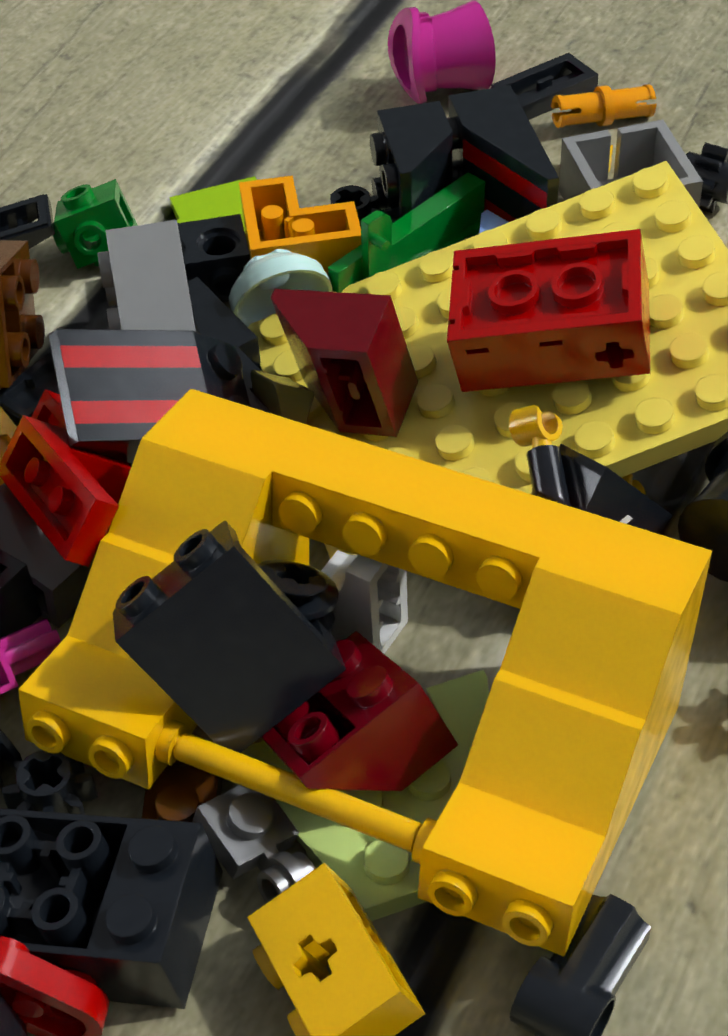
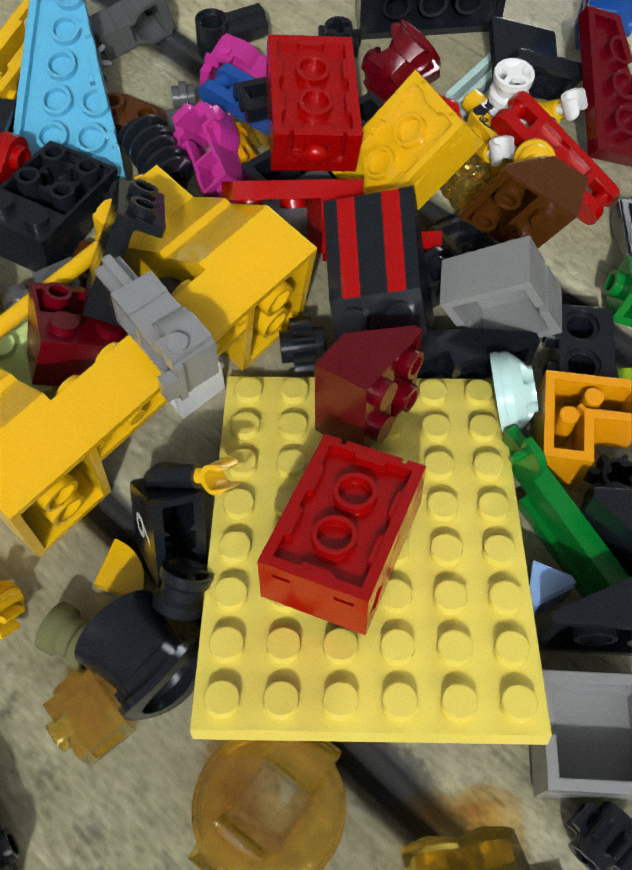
camera: 105 degrees right, 15 degrees up
(417, 433) = (161, 328): none -> light grey piece
(666, 472) = (181, 588): none -> black wheel

